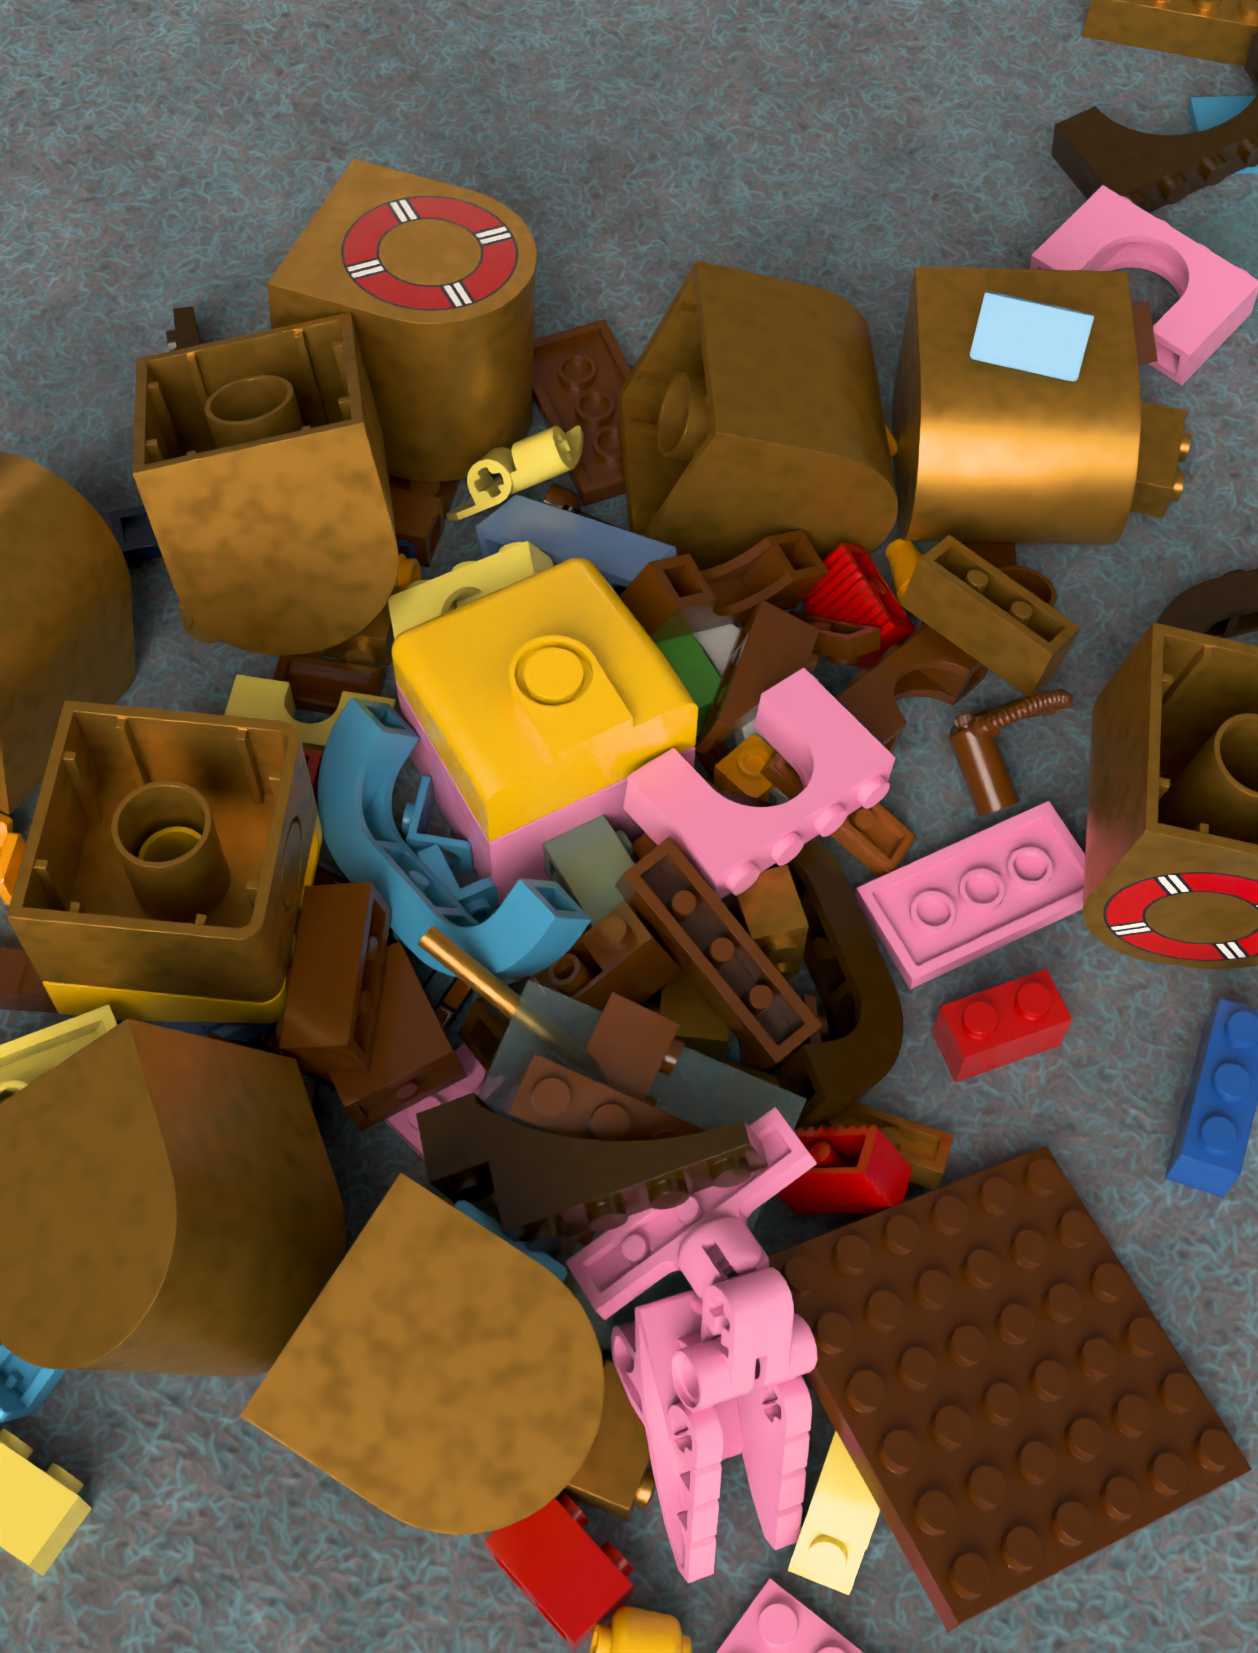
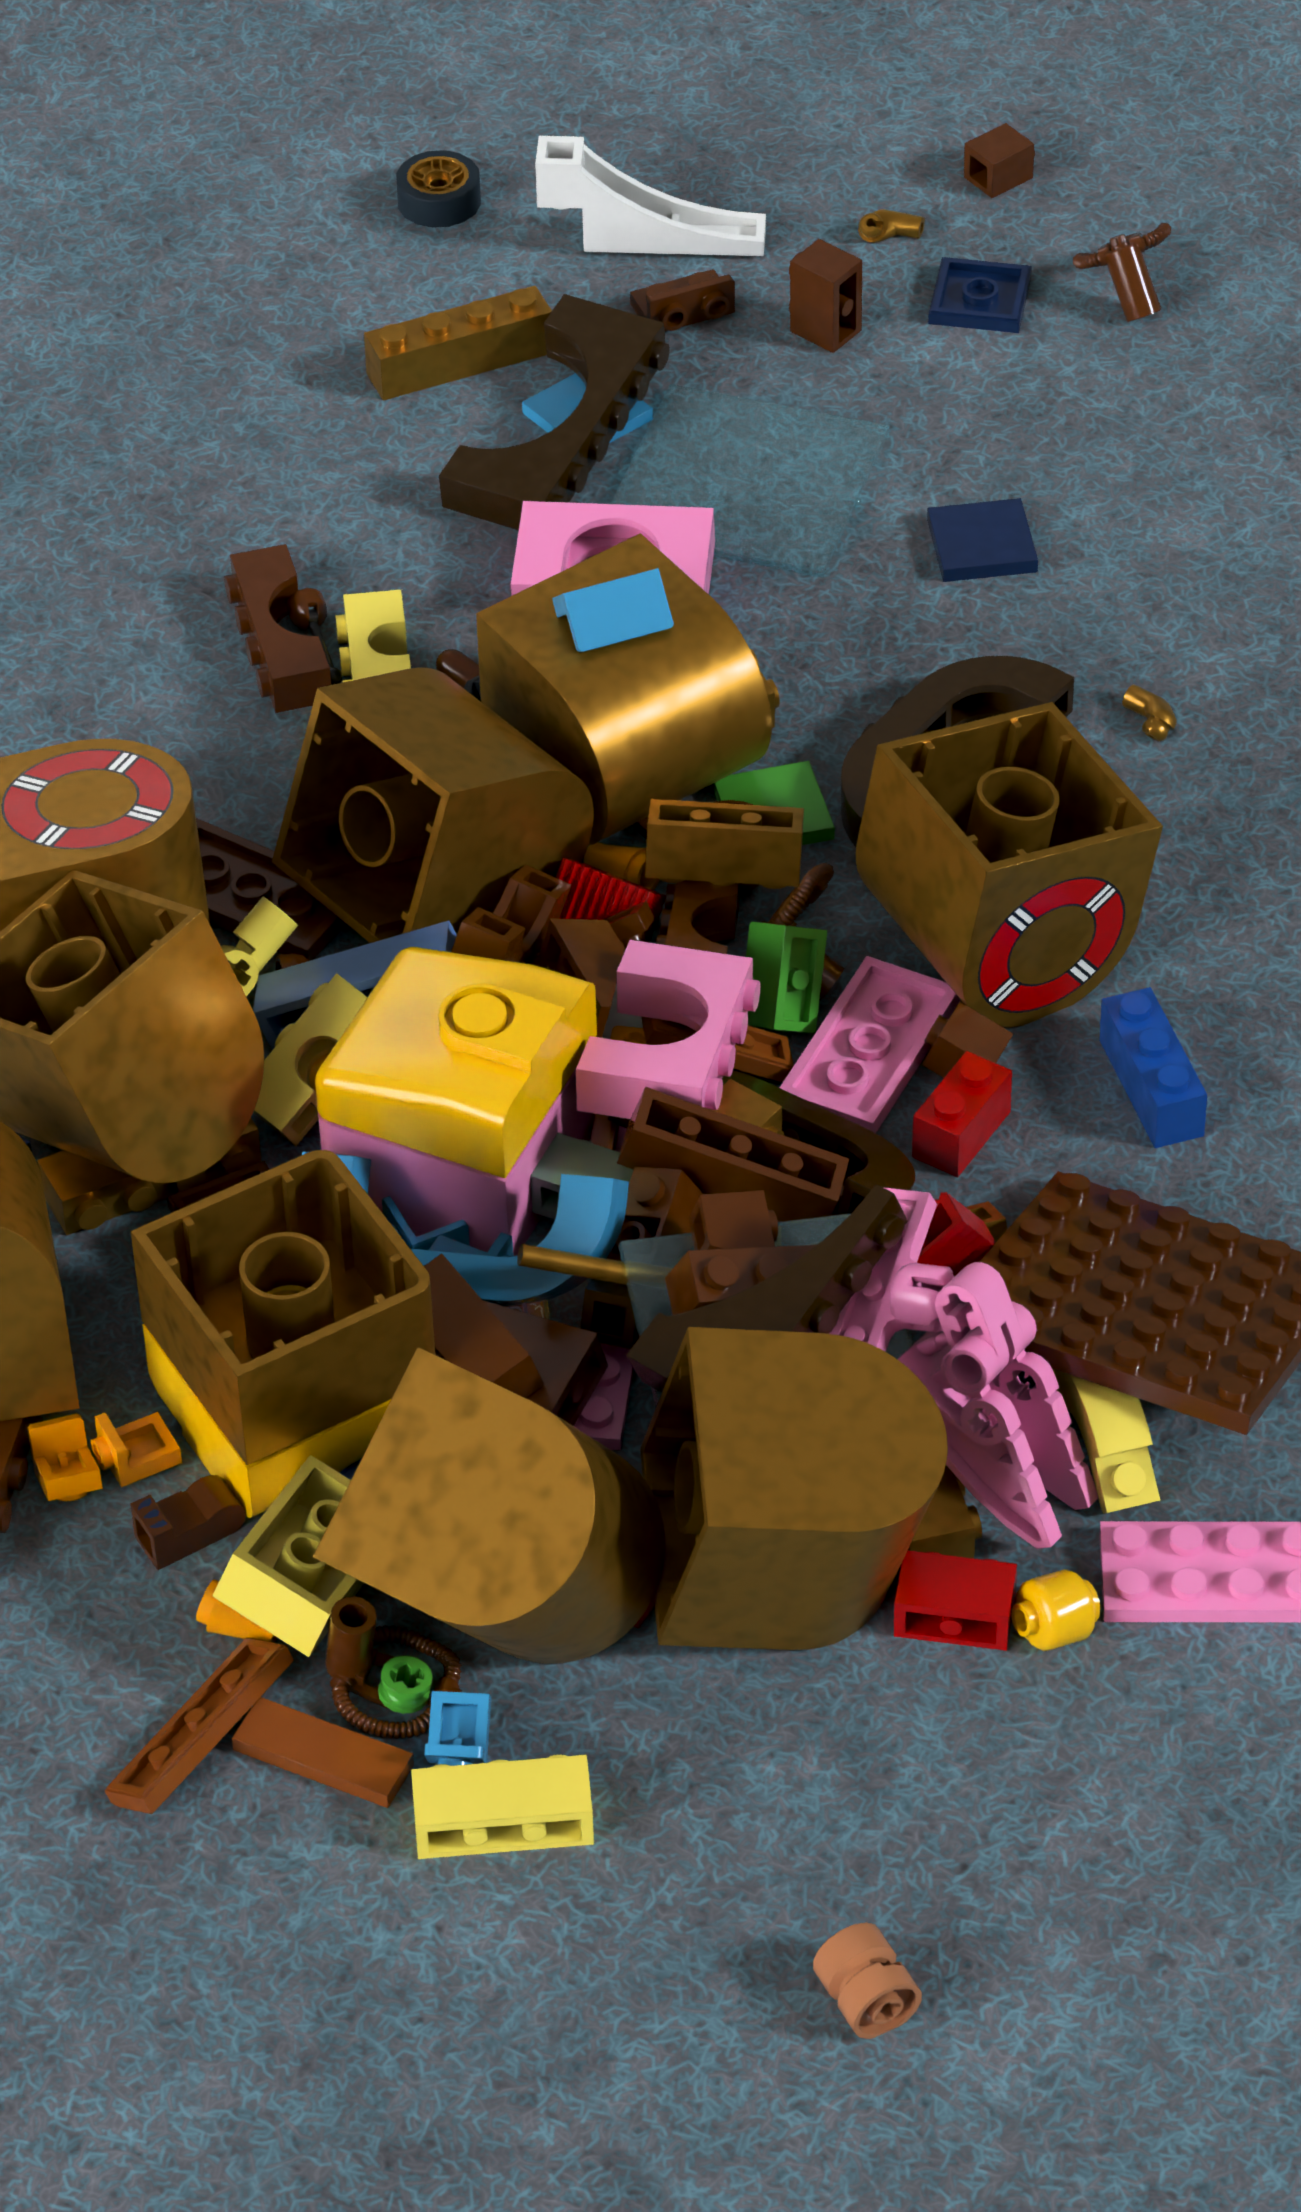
camera: 35 degrees left, 15 degrees down
(834, 151) = (288, 662): none -> reddish brown arch
(854, 196) = (312, 619): none -> reddish brown hinge
(887, 232) = (374, 634): none -> light yellow arch
(948, 779) = (790, 975): none -> bright green panel
(1063, 950) = (961, 1033): none -> reddish brown brick
(1101, 595) = (782, 787): none -> bright green tile

